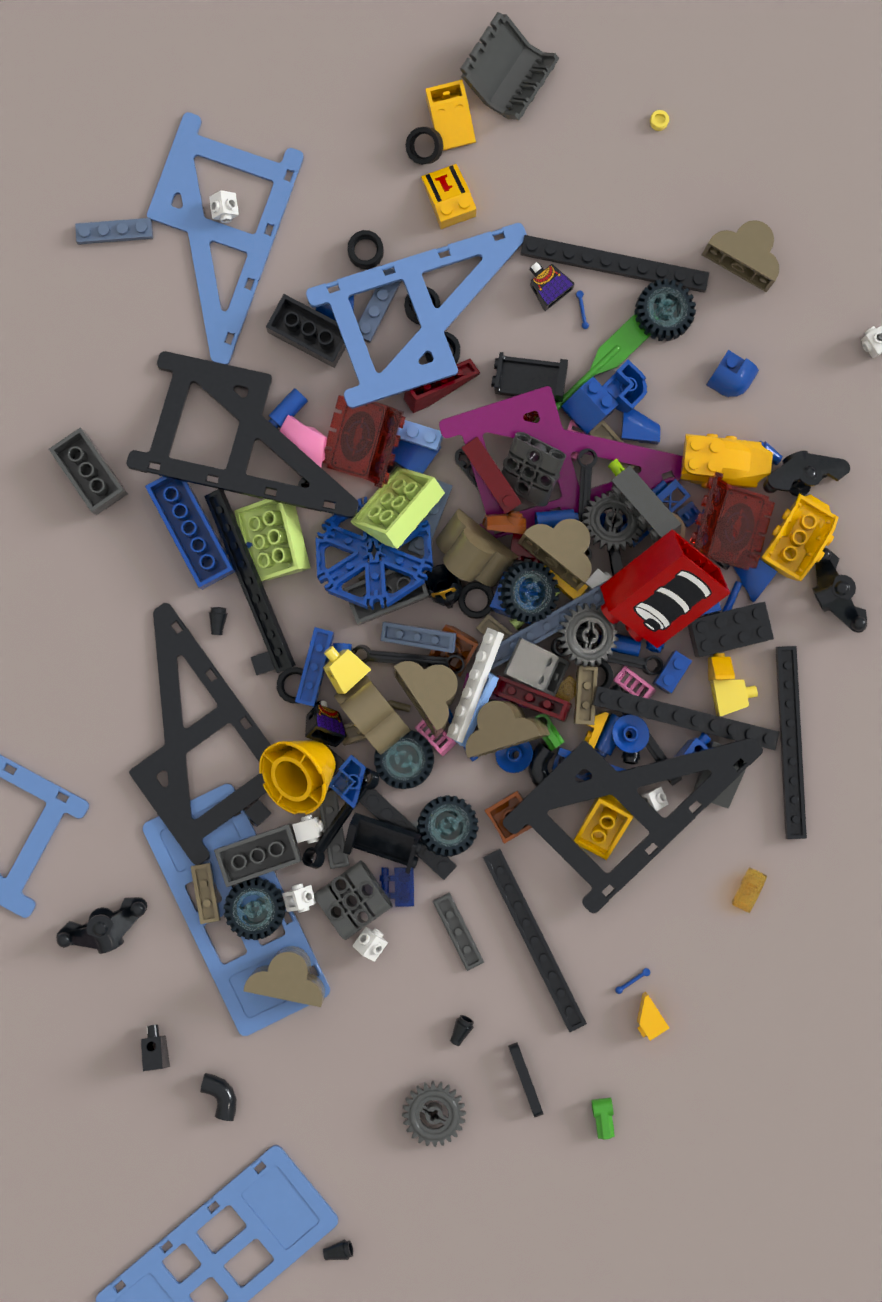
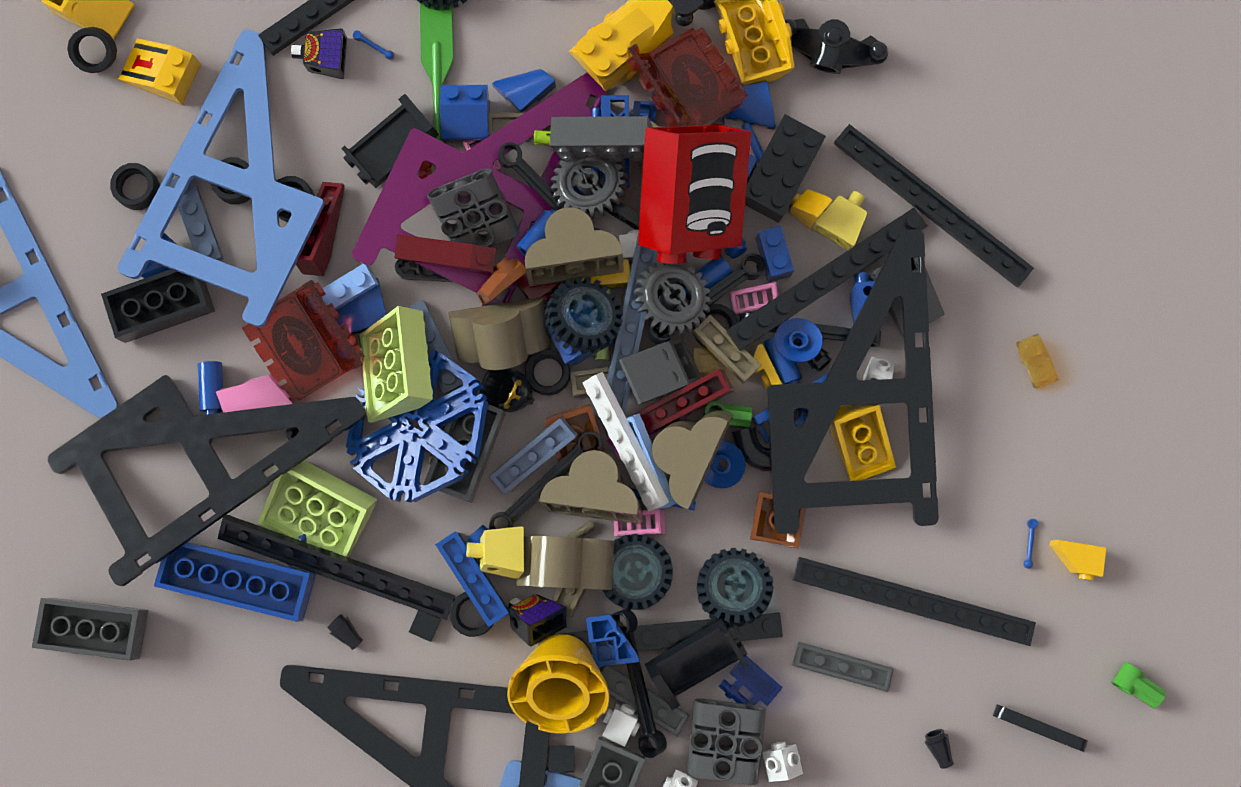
camera: 45 degrees left, 5 degrees down
(627, 386) = (478, 65): blue brick -> none

